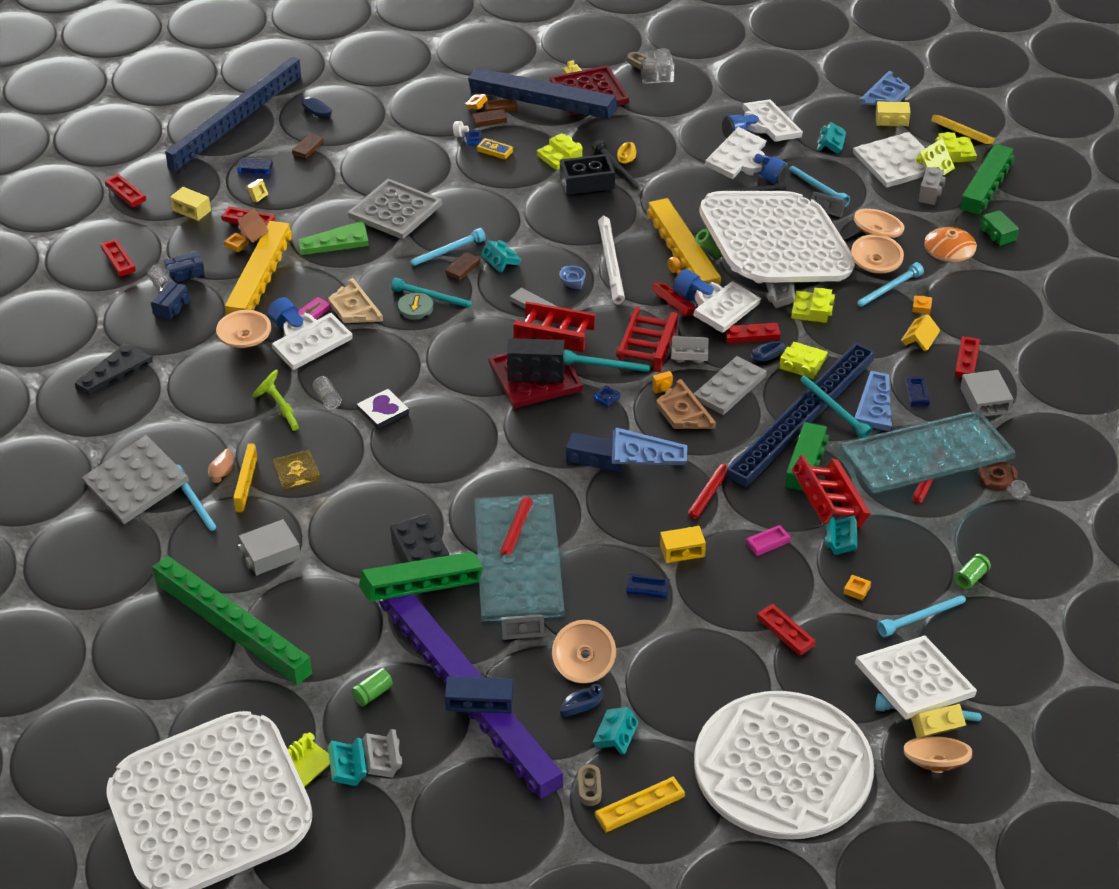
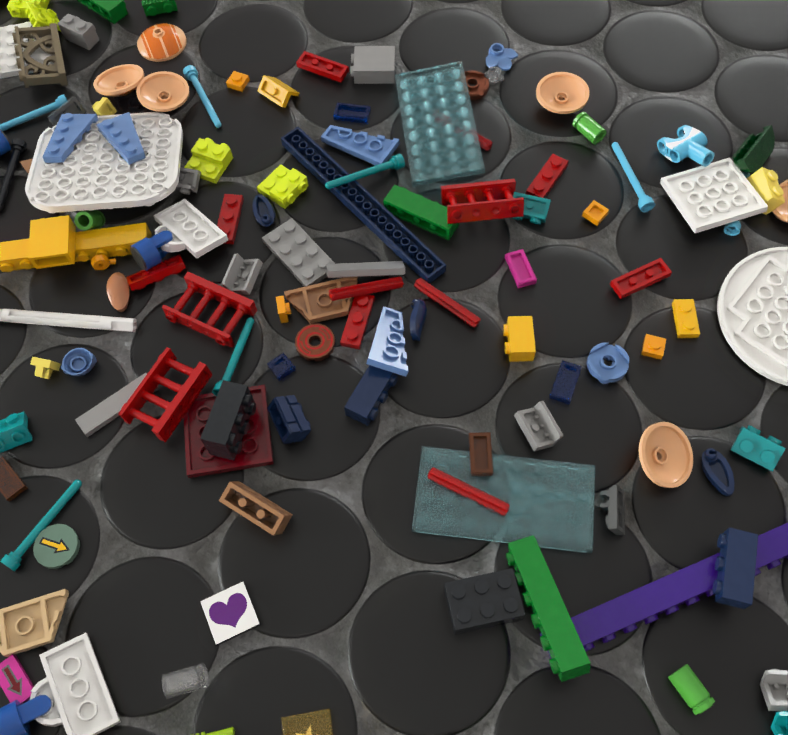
camera: 75 degrees left, 20 degrees up
(468, 399) = (255, 507): none -> medium nougat brick
(552, 527) = (480, 454): none -> reddish brown tile
(553, 404) = (289, 419): none -> dark blue brick
(563, 257) = (44, 367): none -> light yellow tile
(590, 565) = (539, 426): none -> light grey bracket
(639, 404) = (312, 332): none -> copper tile
(644, 284) = (118, 291): none -> nougat arm
(675, 225) = (52, 242): none -> yellow brick
(677, 621) = (603, 372): none -> medium blue plate
(680, 435) = (357, 321): none -> red plate
(681, 470) = (417, 318): none -> dark blue arm
(701, 430) = (365, 288): none -> red axle
(708, 647) = (653, 346): none -> light orange plate
(723, 426) = (365, 269): none -> light grey tile
(750, 671) = (685, 318): none -> yellow plate
(792, 205) = (66, 135): none -> medium blue wing
(805, 237) = (123, 137): none -> medium blue wing
(843, 225) = (104, 107): none -> light yellow tile
(889, 156) = (49, 36): none -> dark tan fence
(892, 548) = (547, 176): none -> red plate
(975, 651) = (687, 145): none -> medium azure connector
(995, 713) = (755, 150): none -> dark green brick
(1008, 539) = (562, 92): none -> light nougat dish
(1048, 491) = (500, 57): none -> medium blue plate

